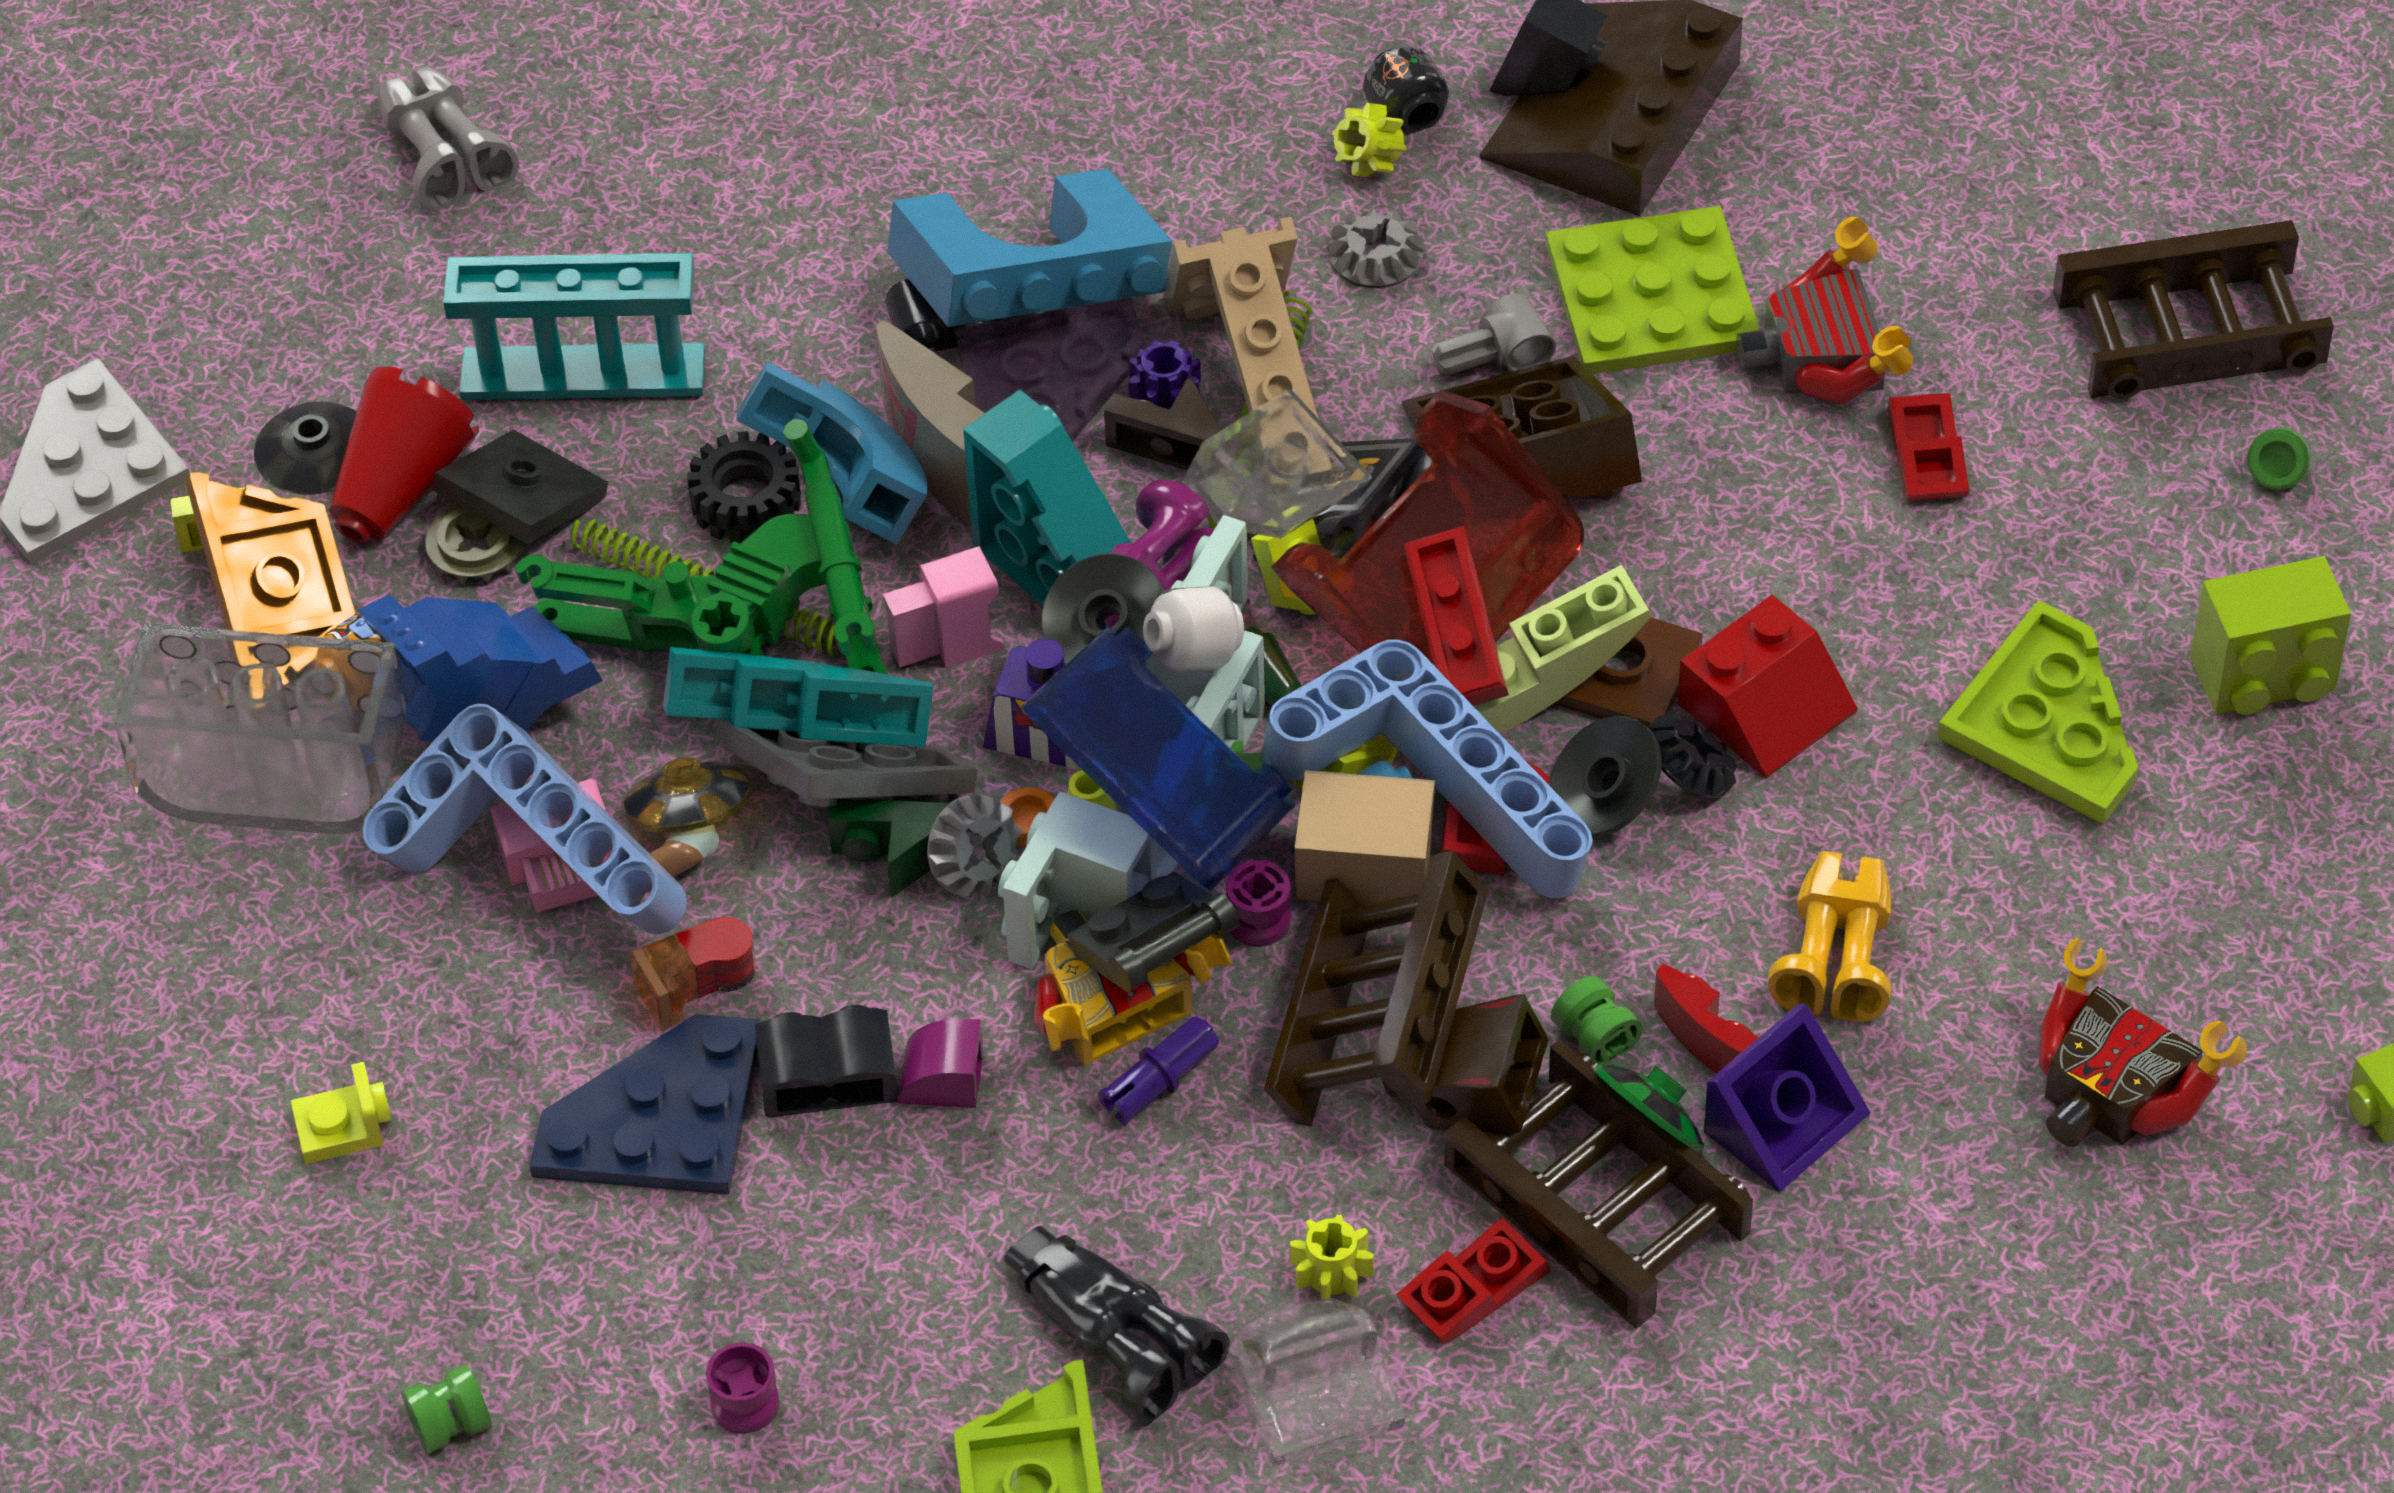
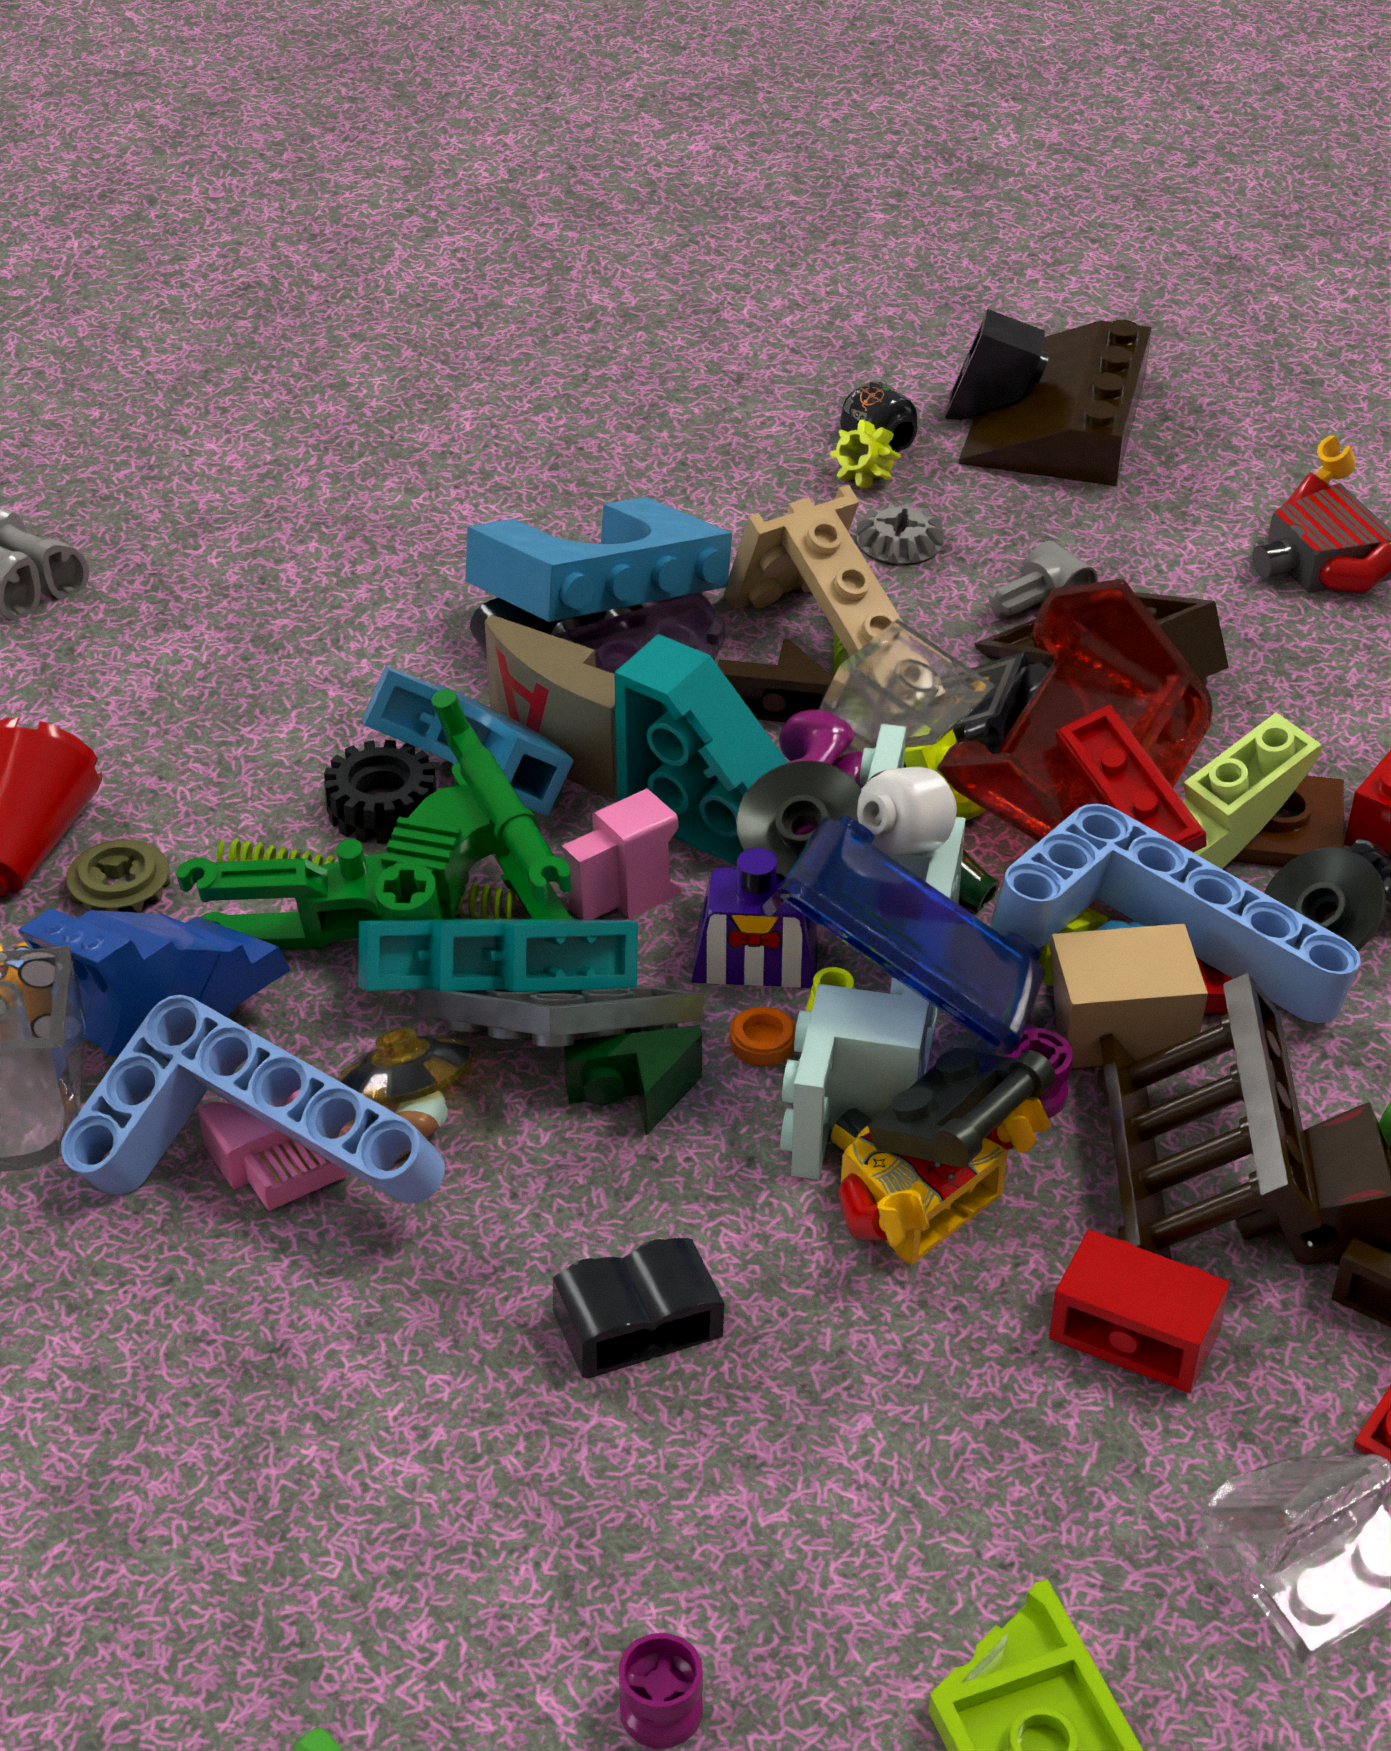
camera: 15 degrees left, 10 degrees down
(341, 1119) = (97, 1465): neon yellow bracket -> none
(520, 486) = (154, 821): pearl dark grey plate -> none
(575, 287) = (175, 623): teal fence -> none
(659, 1115) = (461, 1398): dark blue plate -> none
(692, 965) = (458, 1233): leg -> none
(943, 1064) = (766, 1286): magenta brick -> none
(950, 846) = (707, 1069): light grey gear -> none
(1099, 1305) = (1047, 1522): black piece -> none
(1159, 1069) = (997, 1253): dark purple axle -> none
(1161, 373) = (753, 640): dark purple gear -> none
(1253, 1145) = (1138, 1310): none -> red brick
(1336, 1273) = (1270, 1413): neon yellow gear -> none
(1651, 289) = (1156, 531): lime plate -> none

